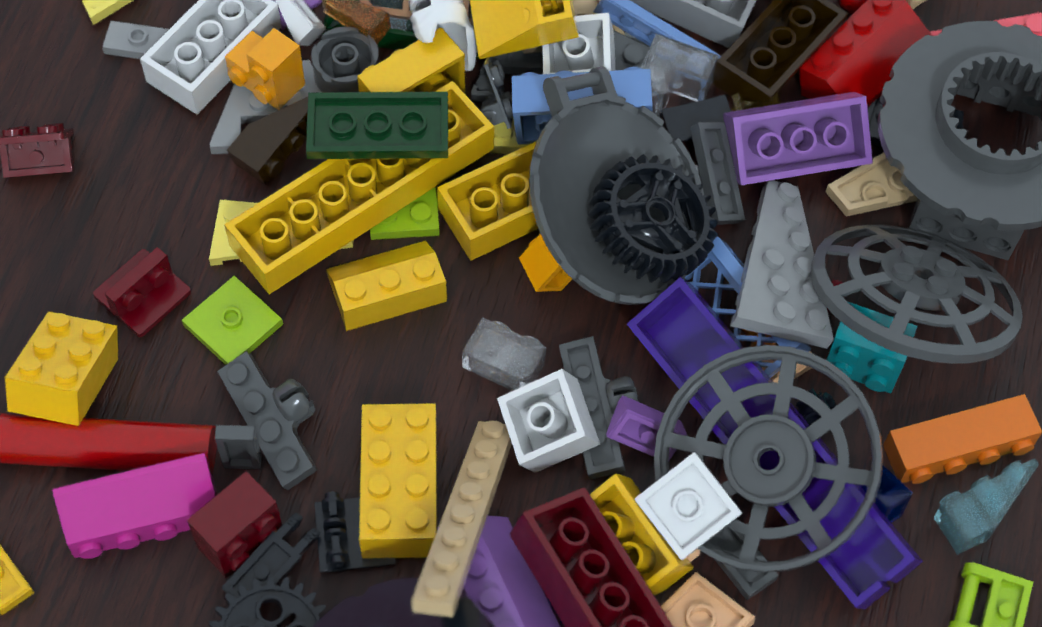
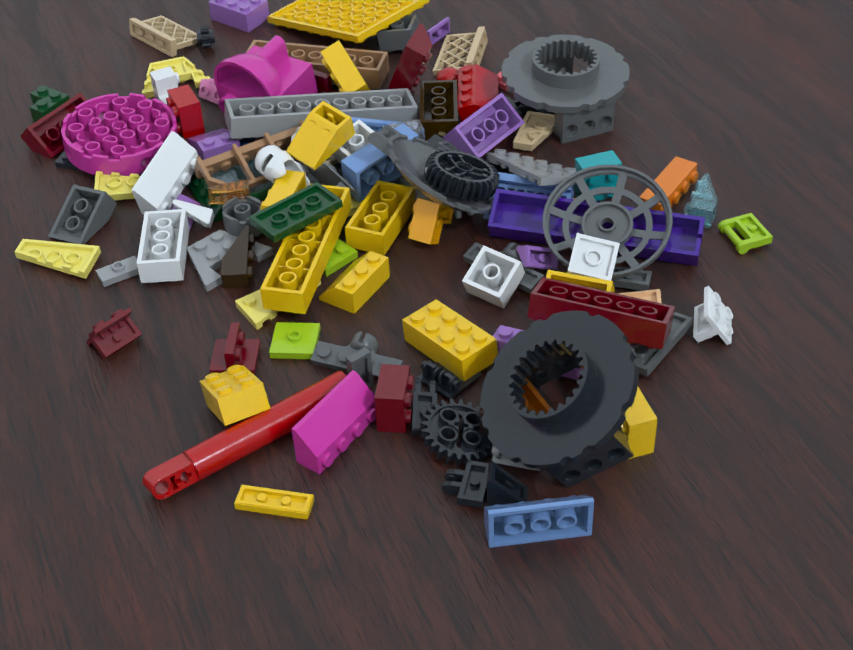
camera: 35 degrees left, 20 degrees down
(267, 67) = (209, 234): light orange brick -> none
(462, 521) = (507, 311): tan plate -> none
(503, 355) = (443, 271): clear brick -> none
(920, 281) = (596, 136): dark grey dish -> none

